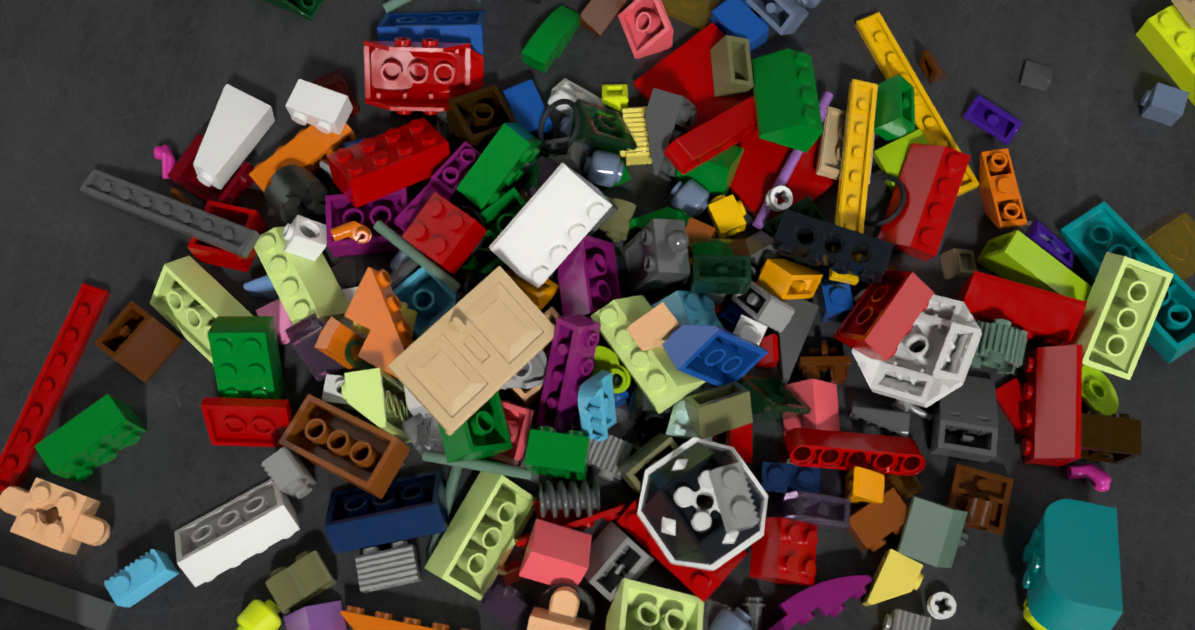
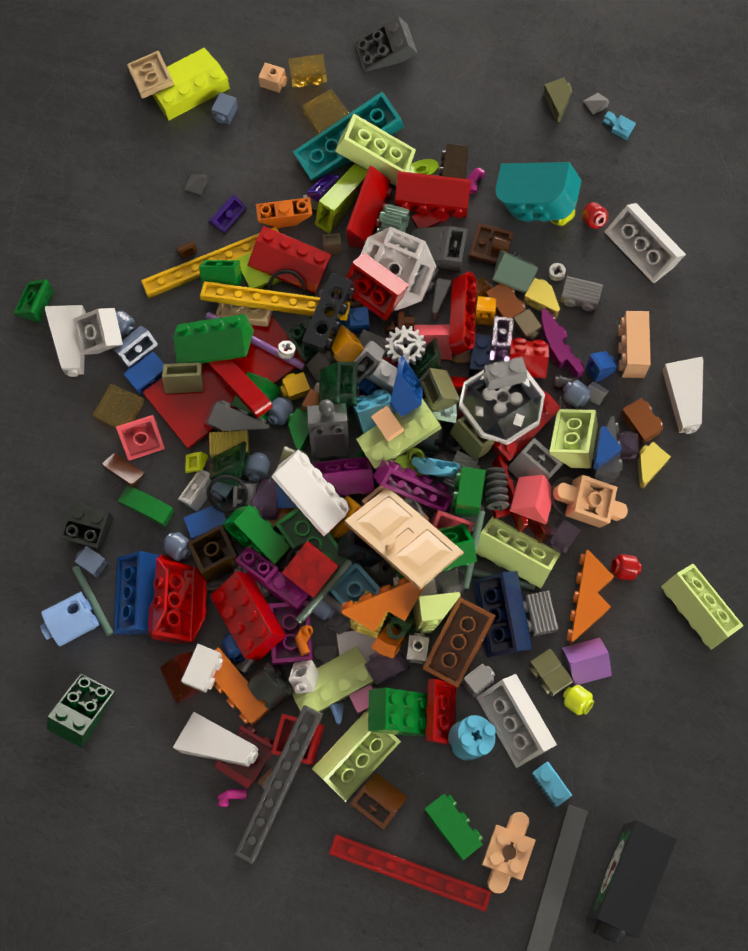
camera: 90 degrees left, 0 degrees up
(195, 471) = (472, 737): none -> medium azure brick
(496, 72) = (176, 546): none -> sand blue head
(803, 361) = (397, 346): none -> white gear
(843, 554) = (527, 325): none -> dark tan brick

